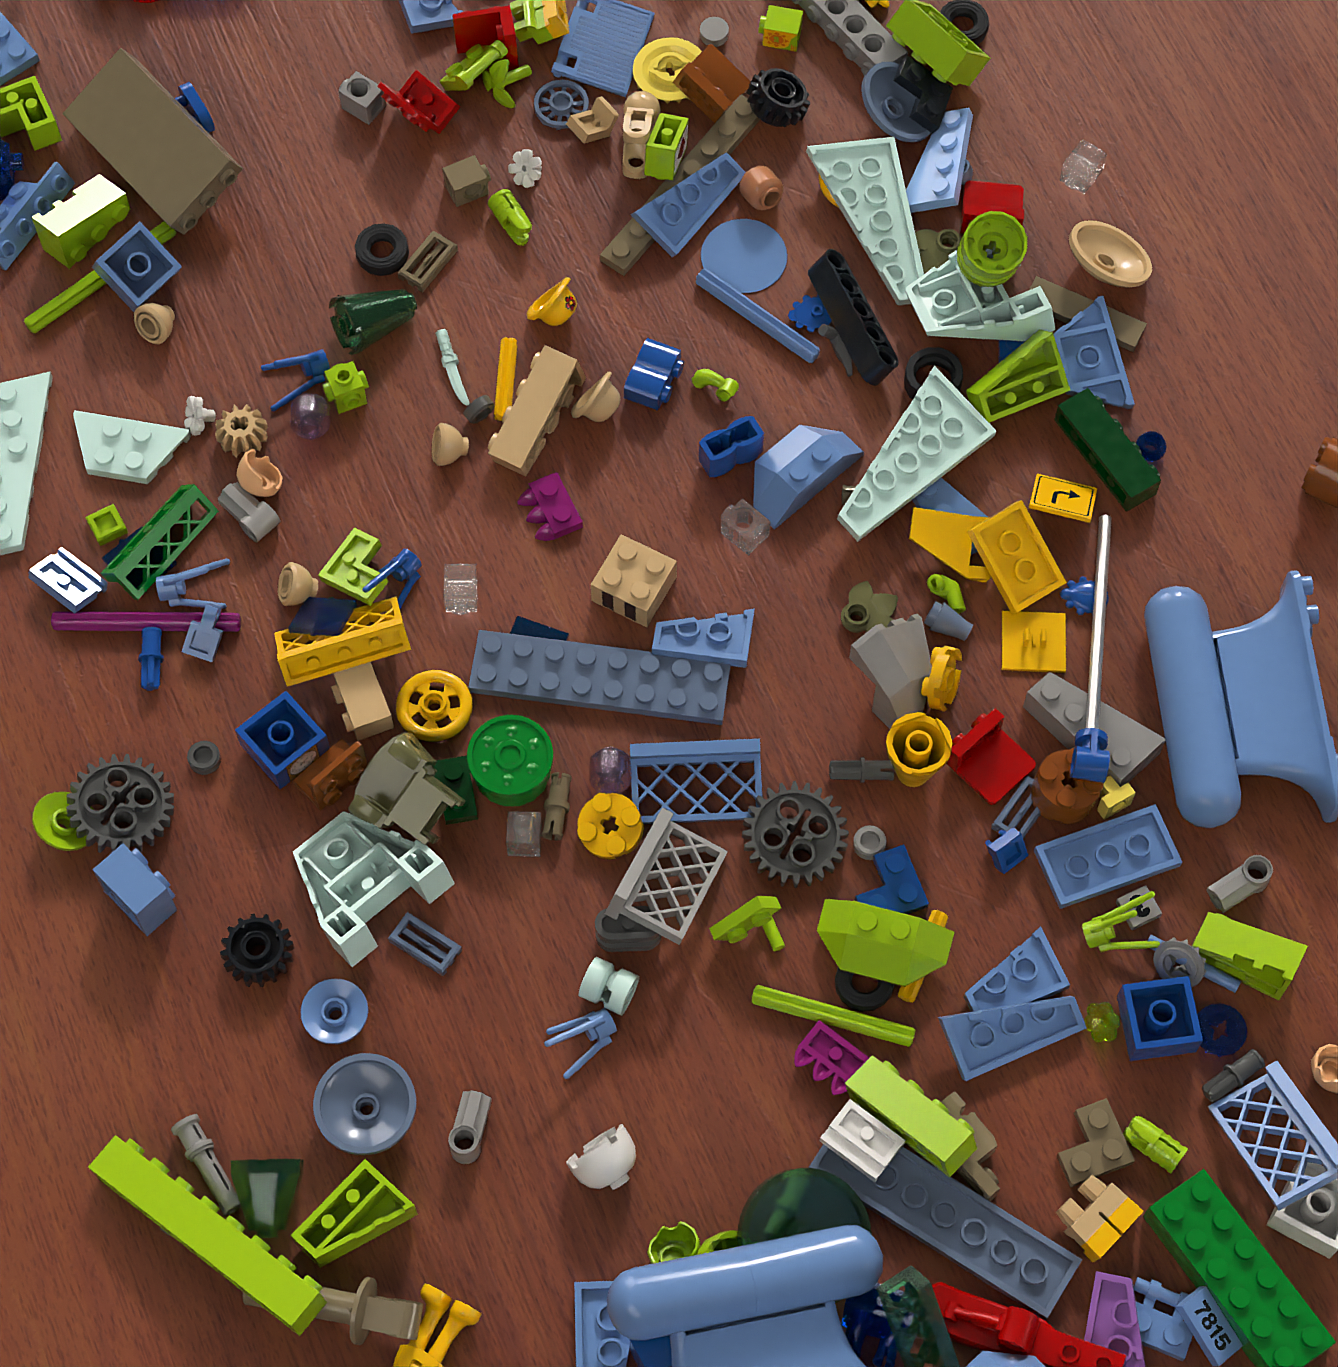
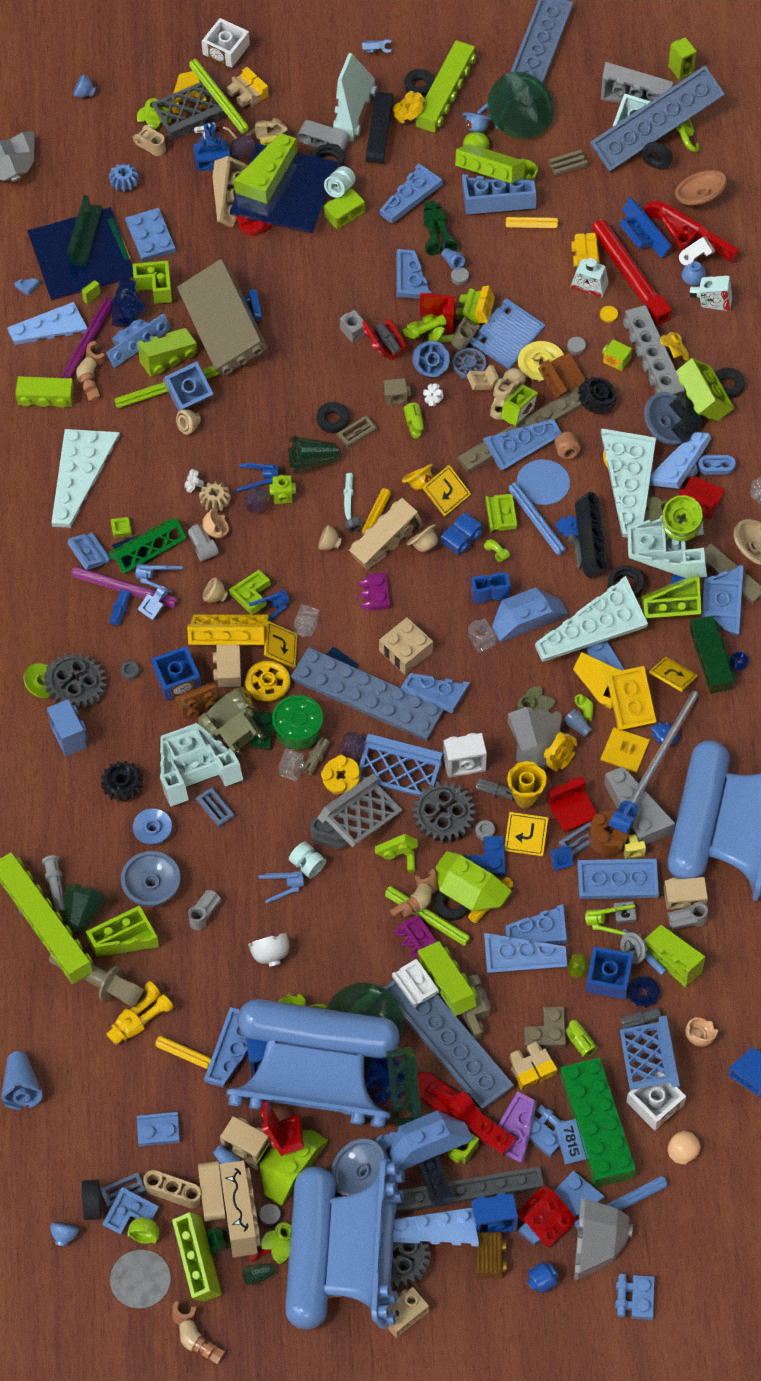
camera: 20 degrees right, 5 degrees down
(125, 446) = (147, 487): light aqua wing -> none
(322, 616) = (222, 612): clear blue piece -> none
(424, 100) = (387, 338): none -> dark grey axle
(434, 639) = (280, 644): none -> yellow piece
(503, 113) = (430, 358): none -> medium blue cylinder
(538, 60) = (464, 333): none -> dark tan piece
(603, 312) = (446, 490): none -> yellow piece
(700, 322) = (501, 512): none -> lime plate
(795, 730) = (464, 755): none -> white brick
(816, 990) = (420, 898): none -> nougat piece
(938, 828) = (526, 834): none -> yellow piece
(995, 153) = (716, 464): none -> medium blue plate
(1222, 846) = (684, 892): none -> tan brick

